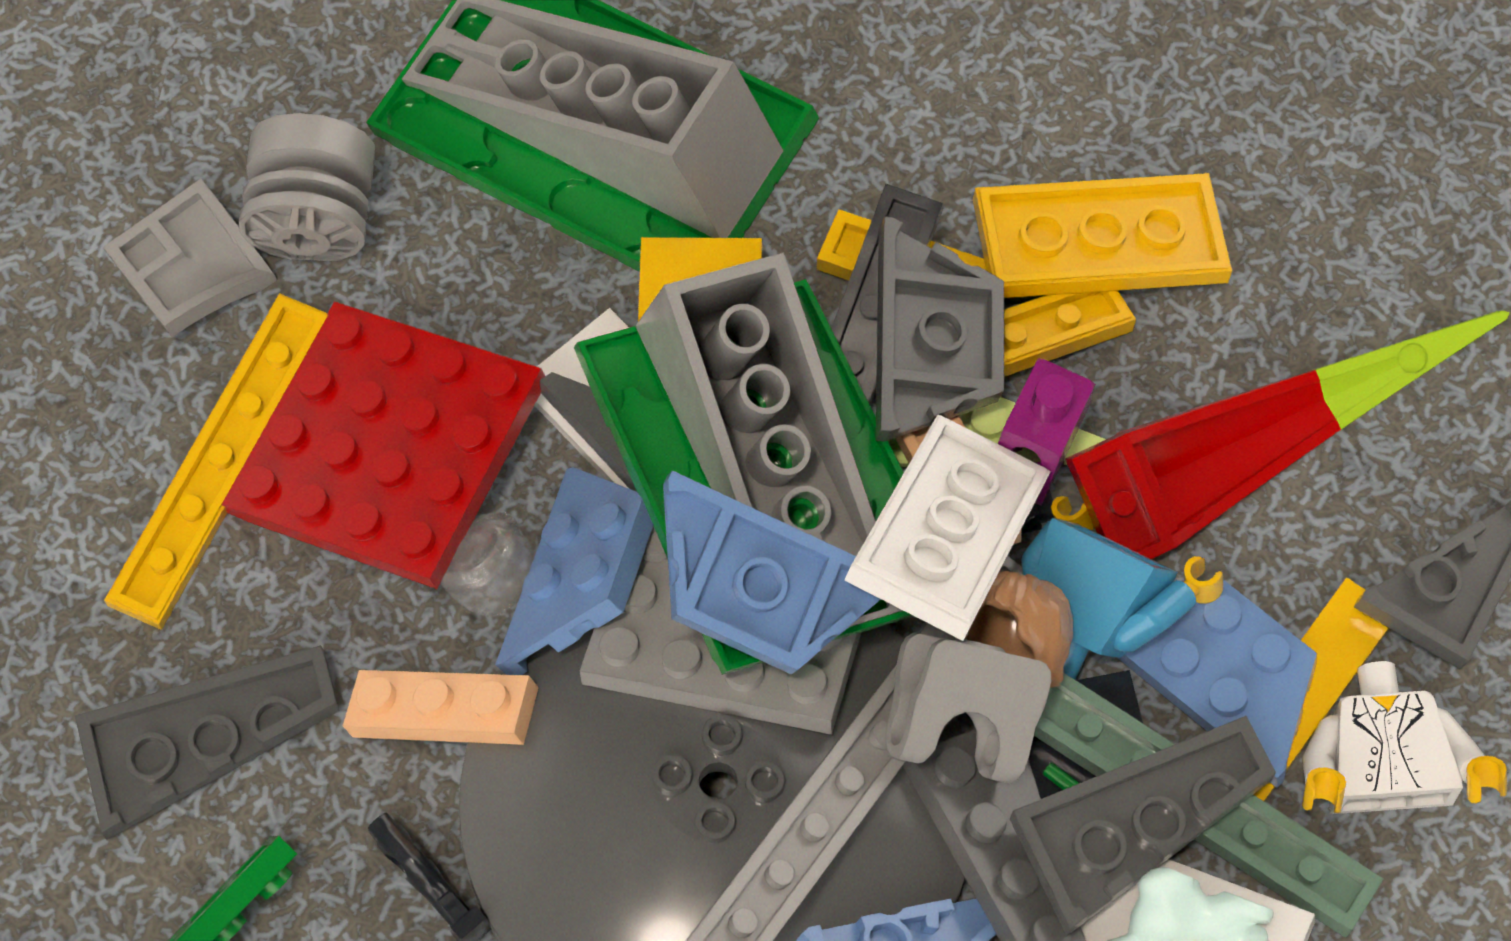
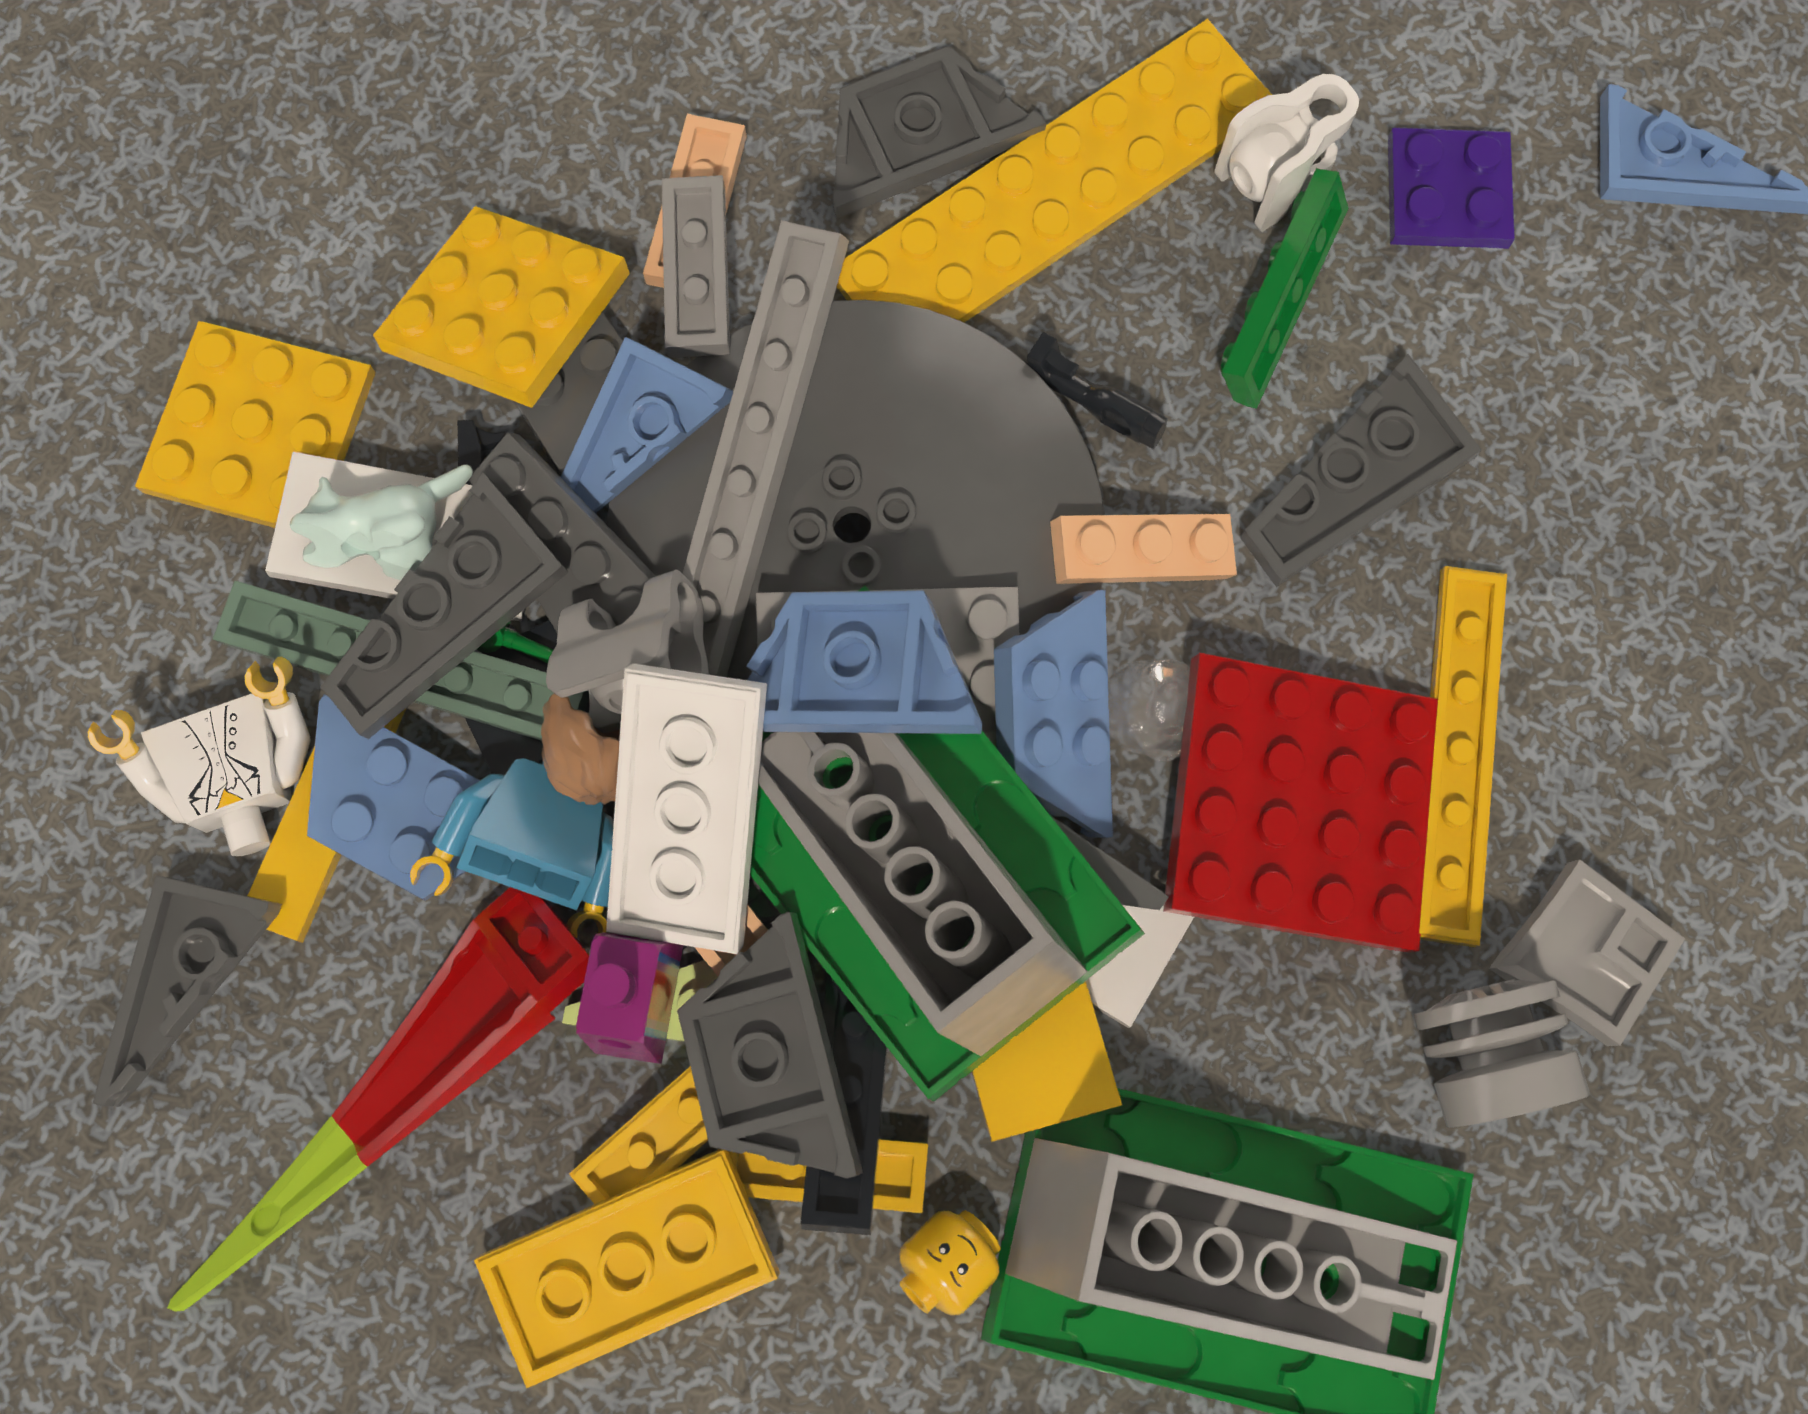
camera: 160 degrees right, 10 degrees up
(827, 168) = (949, 1262): none -> yellow head

